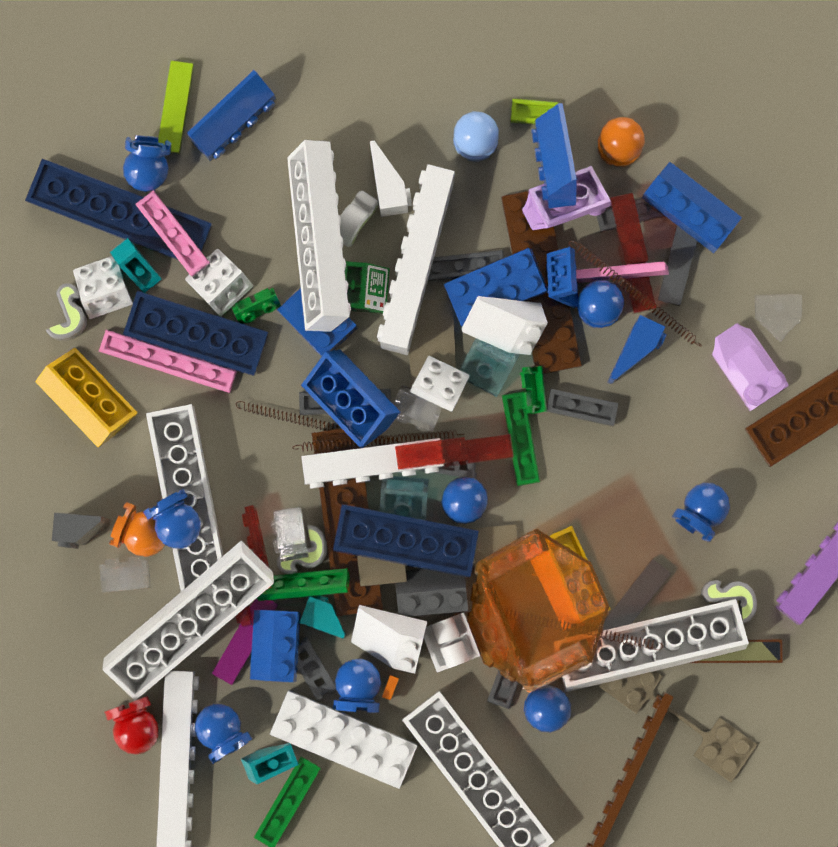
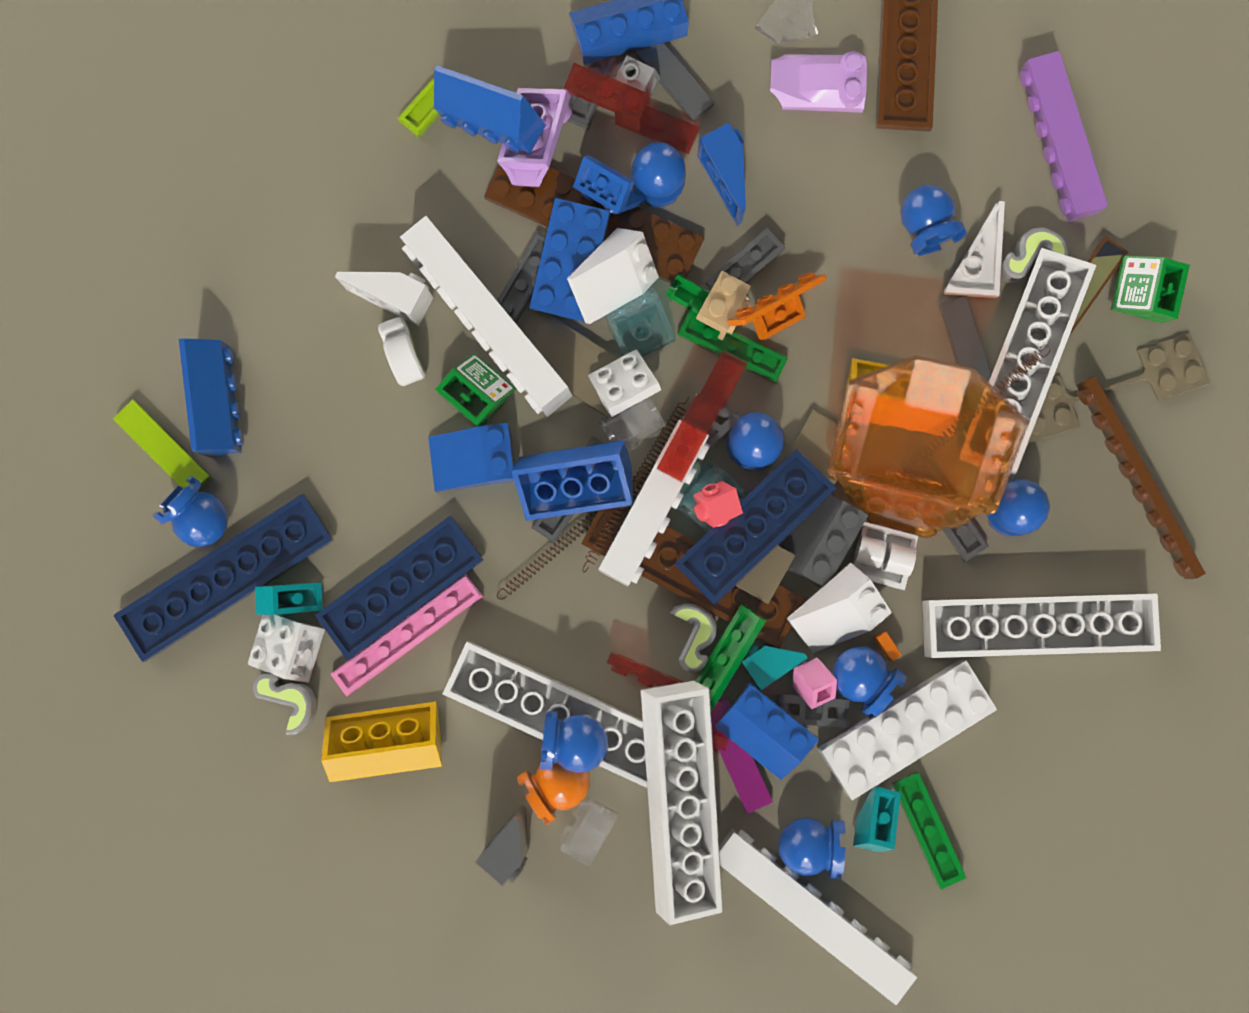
camera: 50 degrees left, 0 degrees up
(134, 727) = (747, 931): red tile -> none
(172, 233) = (283, 539): bright pink tile -> none
(220, 283) = (366, 527): white bracket -> none
(265, 303) = (419, 496): green hinge -> none
(290, 534) = (667, 636): clear brick -> none
(318, 236) = (392, 395): white brick -> none
(330, 655) = (814, 683): none -> bright pink brick
(400, 503) = (717, 504): none -> coral brick
(475, 136) = (407, 176): light blue tile -> none
(542, 412) = (723, 302): none -> tan bracket
(565, 452) = (779, 310): none -> orange bracket
(621, 141) = (515, 43): orange tile -> none
(625, 271) = (645, 126): bright pink tile -> none
(637, 291) = (656, 139): reddish brown piece -> none
(656, 240) = (637, 75): none -> light grey brick
(697, 568) = (981, 266): none -> white wing
(764, 693) = (1150, 288): none -> slope

